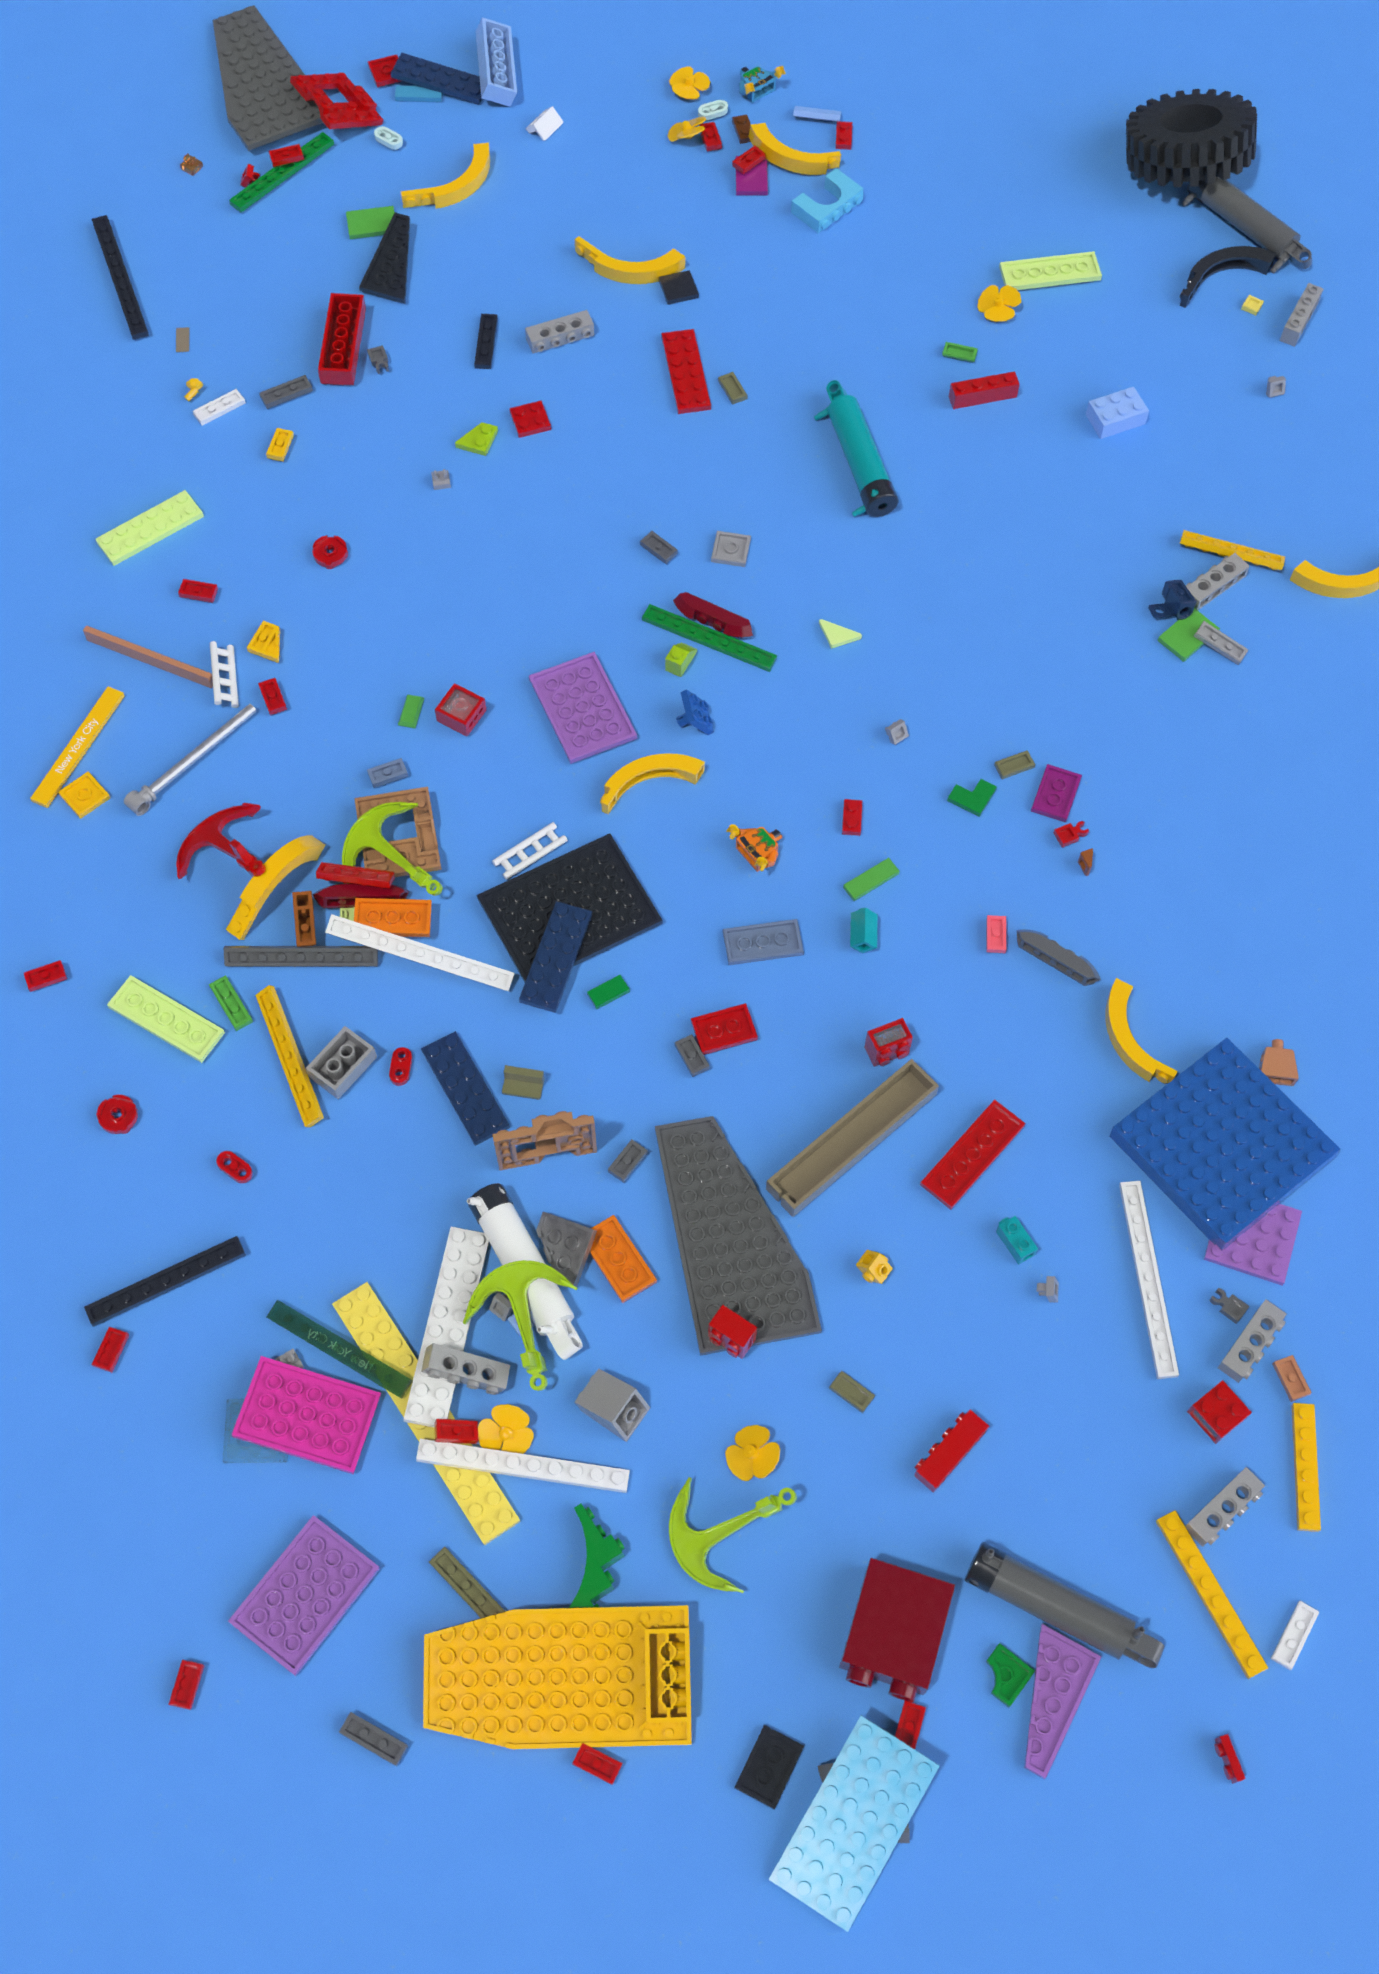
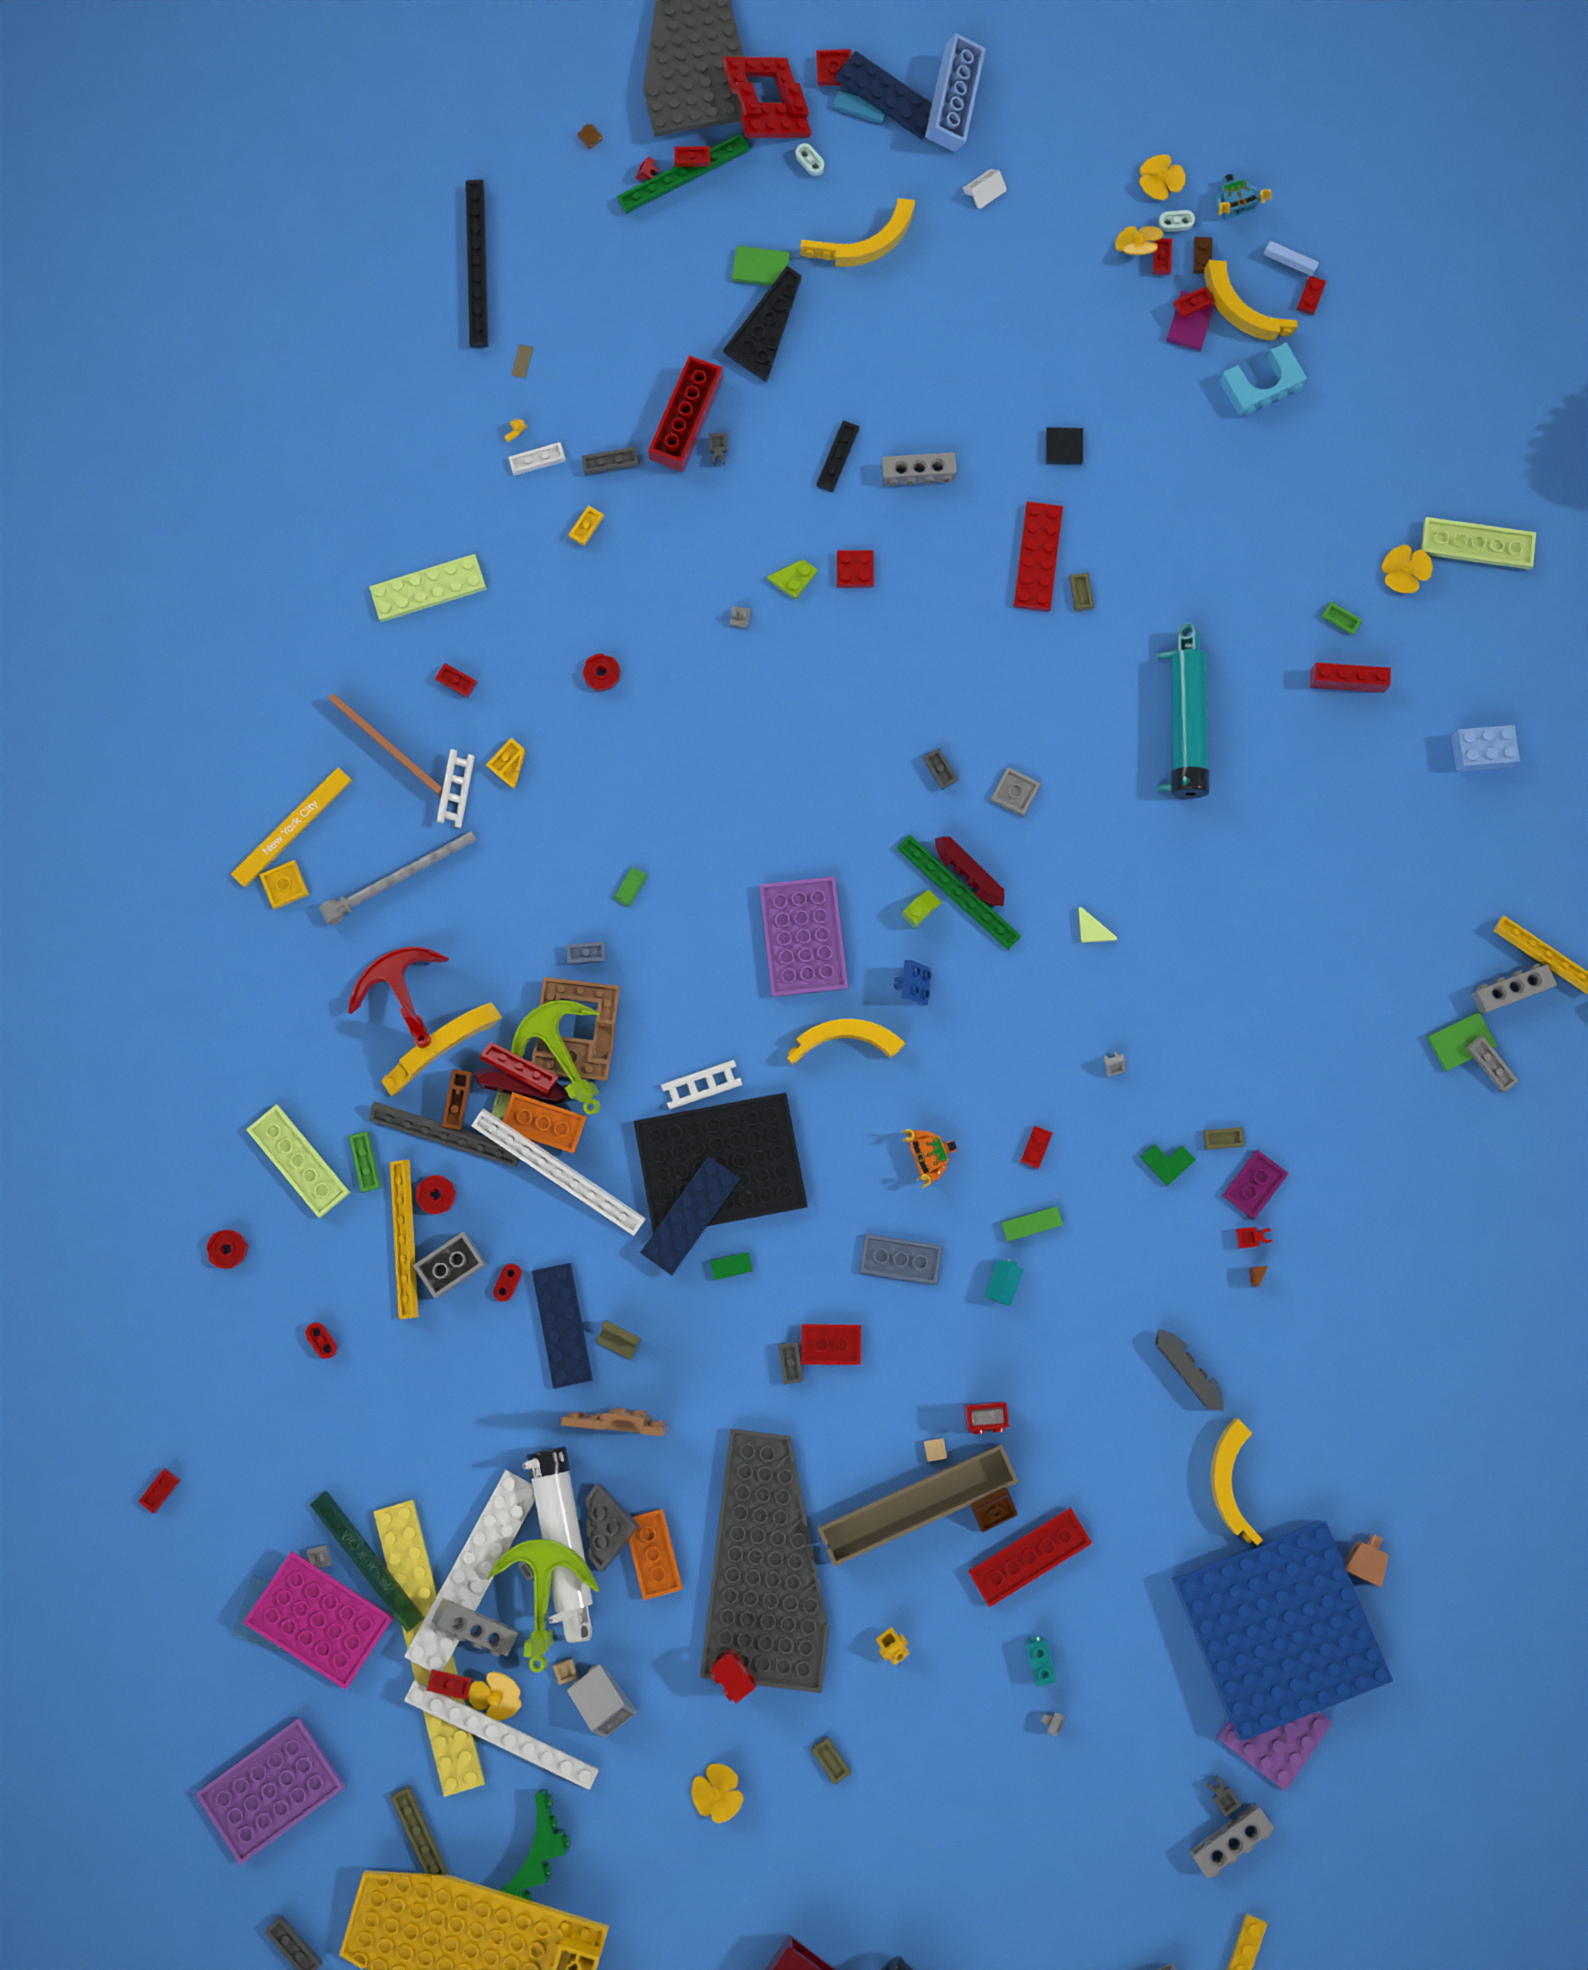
camera: 20 degrees right, 15 degrees up
(45, 975) = (196, 1077): red plate -> none
(164, 1281) = (226, 1437): black plate -> none
(186, 1685) = (144, 1839): red plate -> none
(272, 696) = (497, 828): red plate -> none
(300, 1004) = (443, 1203): none -> red plate
(460, 709) = (678, 905): piece -> none
(567, 1392) = (565, 1671): none -> tan tile
(627, 1161) = (693, 1455): dark grey plate -> none
(630, 272) = (1017, 413): yellow arch -> none
(692, 1546) = (633, 1864): lime piece -> none
(852, 1090) = (935, 1449): none -> tan tile
(924, 1120) = (993, 1509): none -> reddish brown tile
(951, 1450) = (903, 1853): red brick -> none
(996, 934) = (1136, 1326): coral plate -> none
(1148, 1280) = (1154, 1743): white plate -> none
(1177, 601) = (1463, 1002): dark blue piece -> none
(1219, 1412) = (1172, 1902): red piece -> none
(1291, 1378) = (1255, 1890): nougat plate -> none

